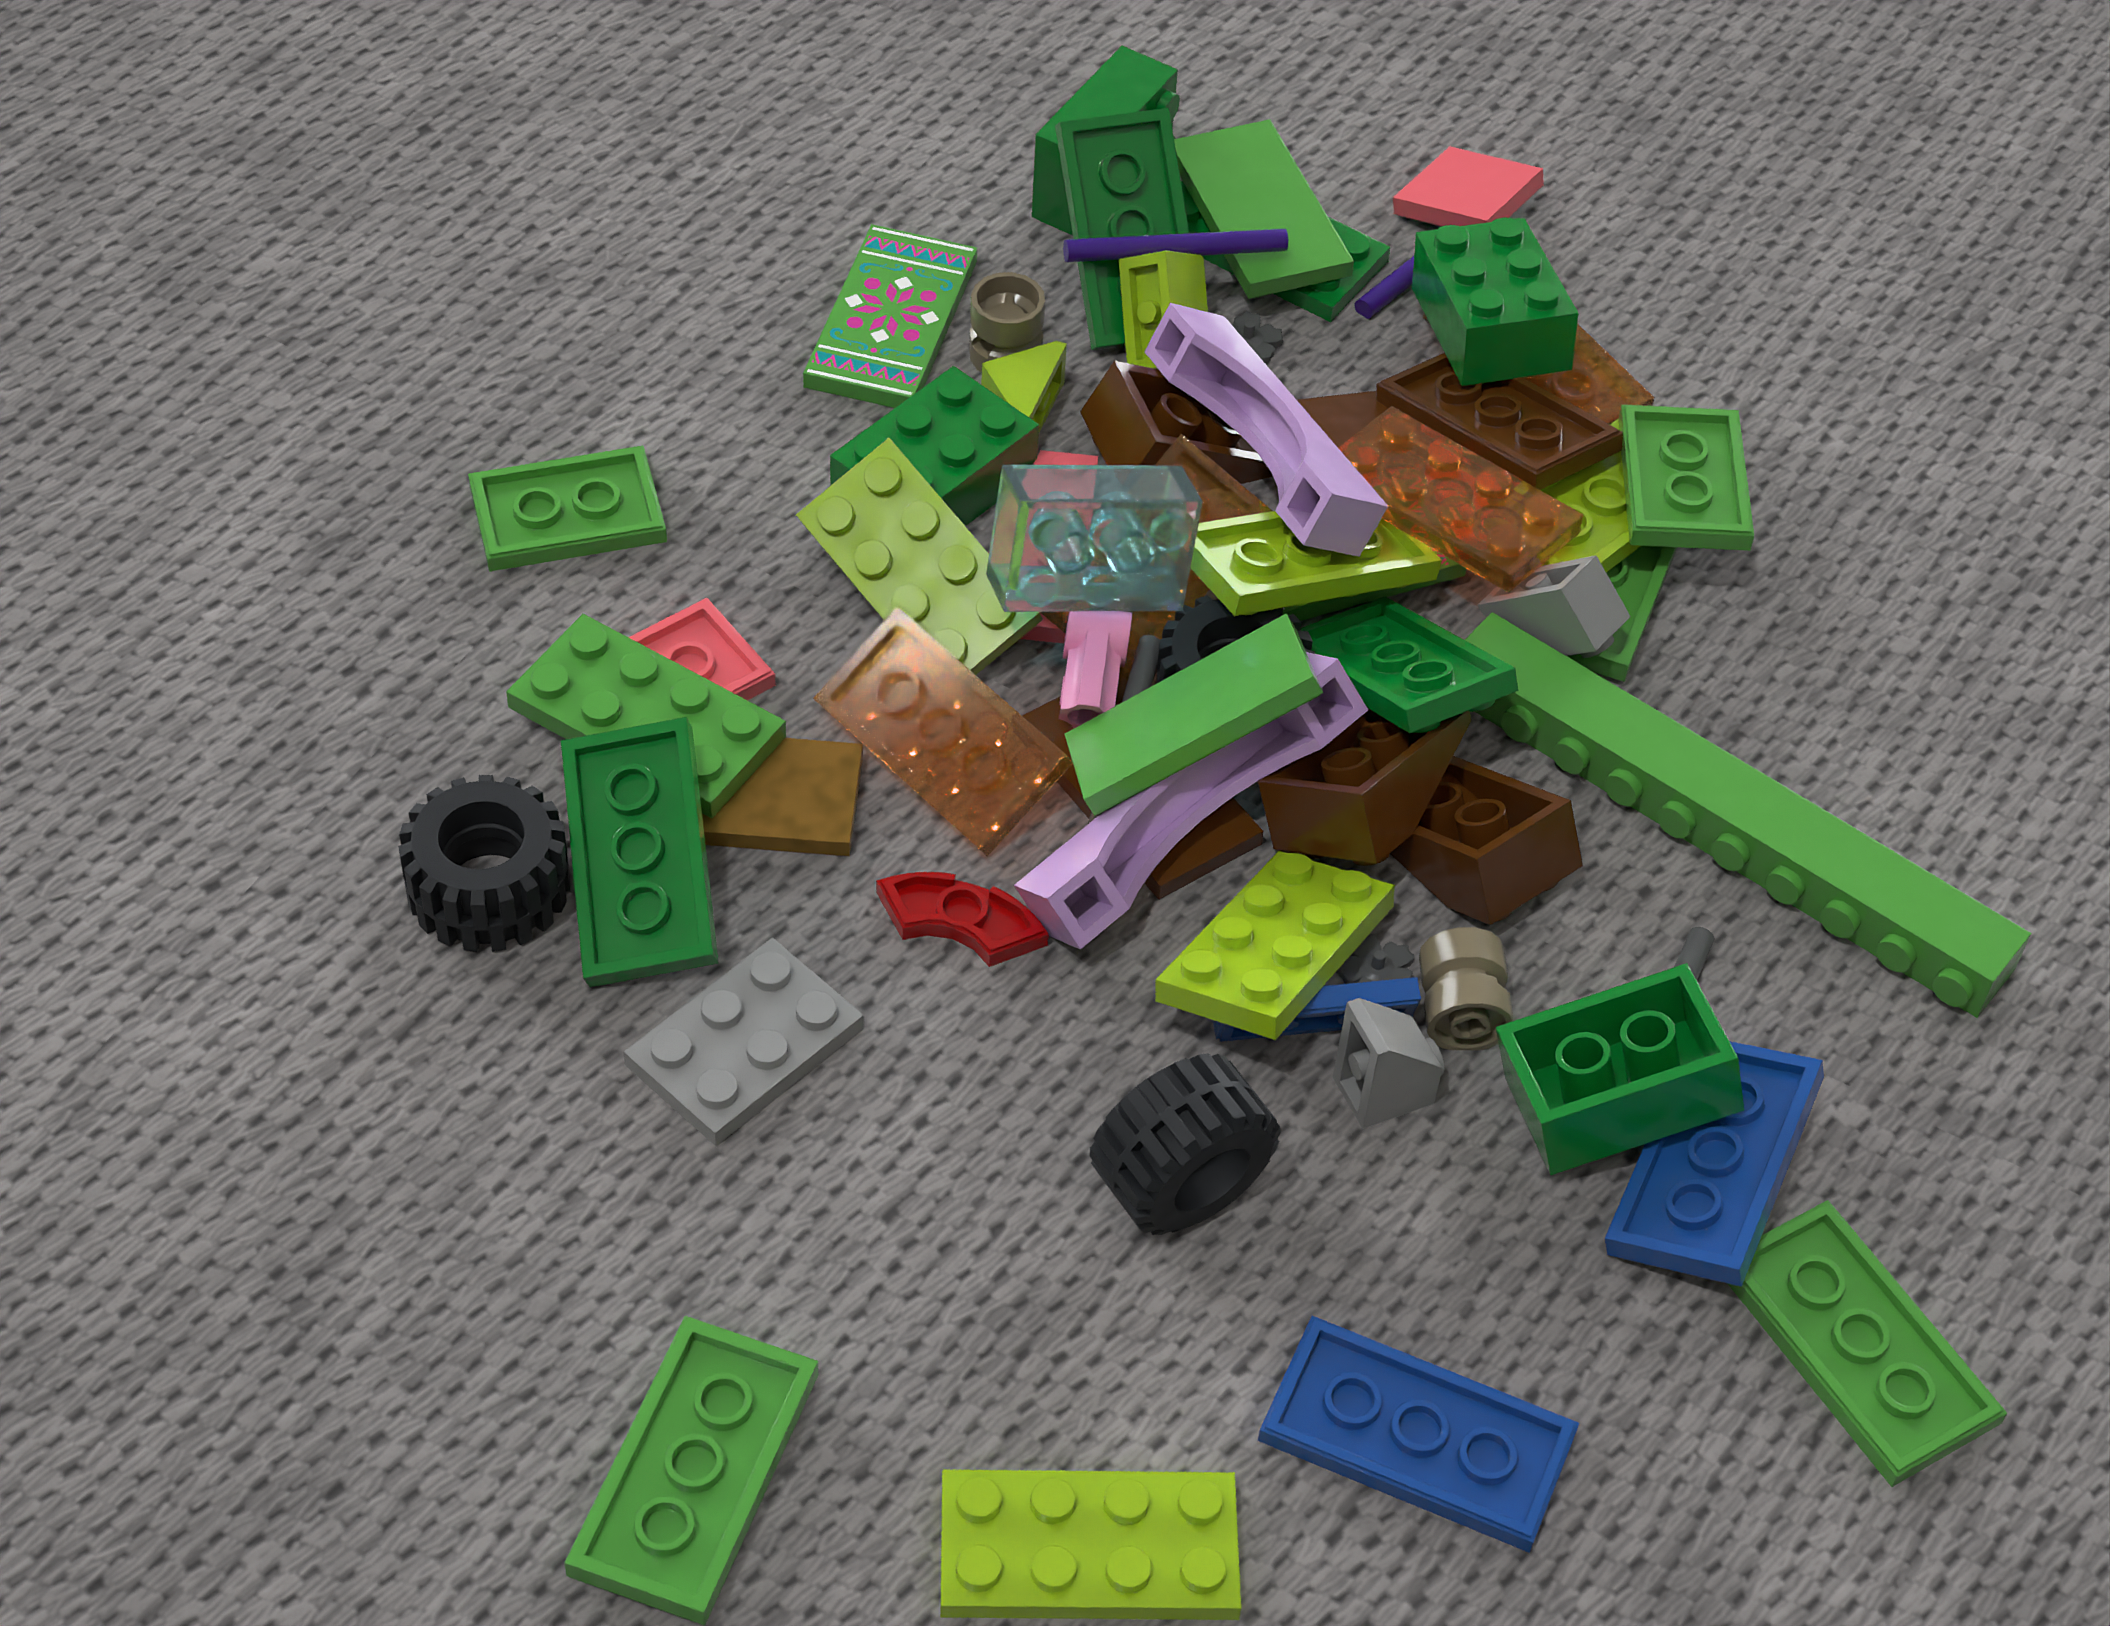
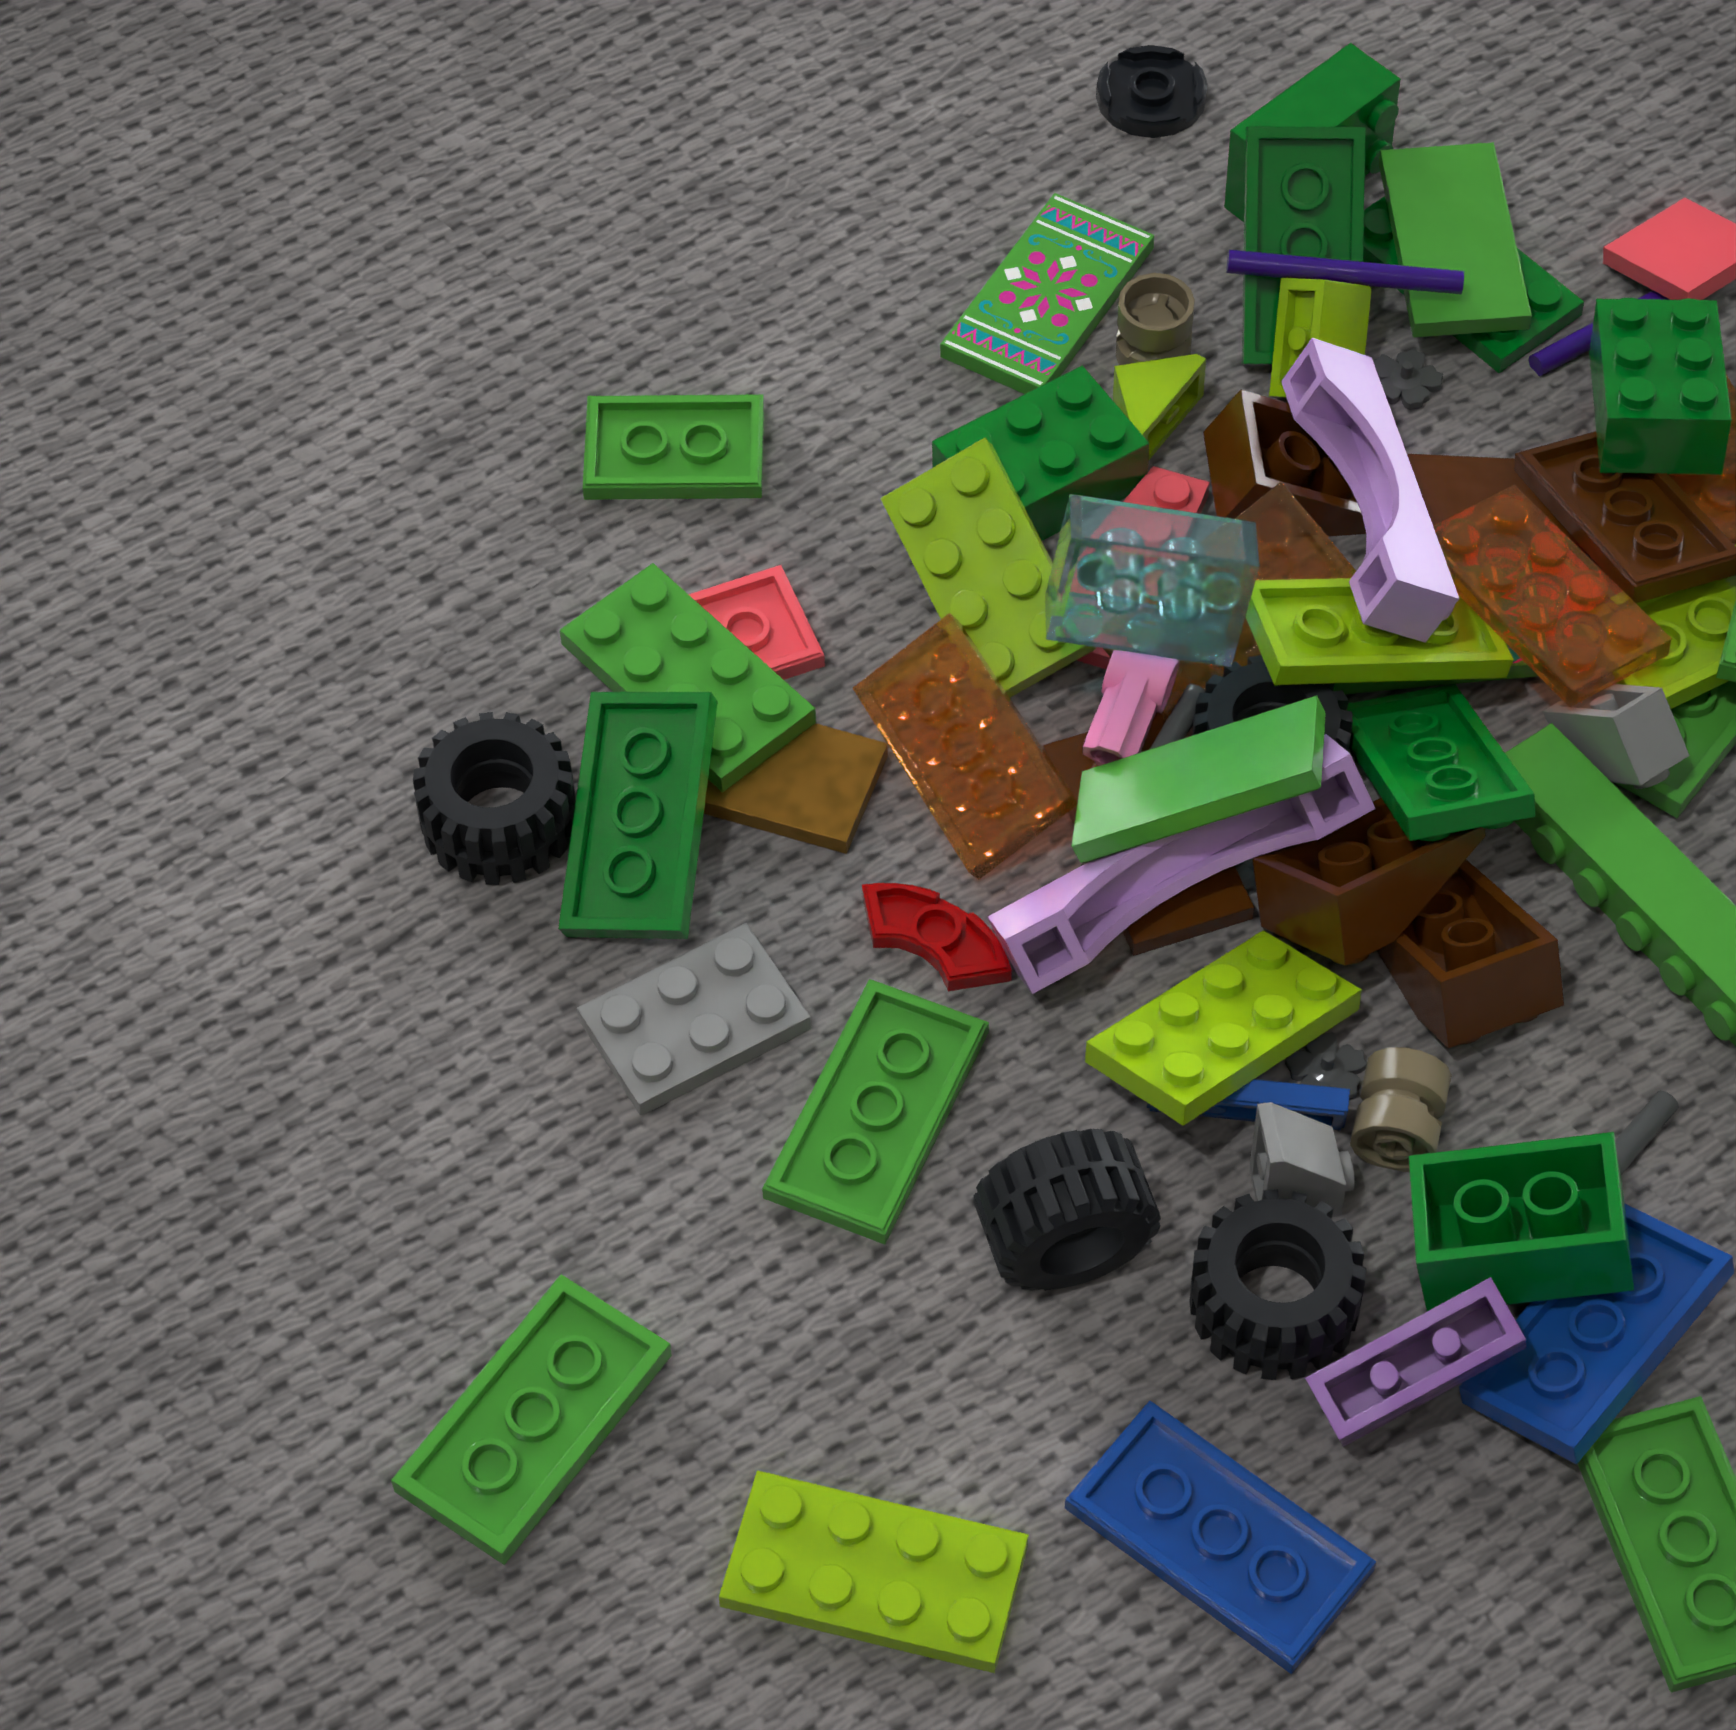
camera: 20 degrees right, 5 degrees up
(933, 139) = (1149, 106): none -> black tile
(953, 1095) = (876, 1111): none -> bright green tile
(1396, 1221) = (1266, 1331): none -> black tyre
(1565, 1219) = (1417, 1362): none -> medium lavender brick

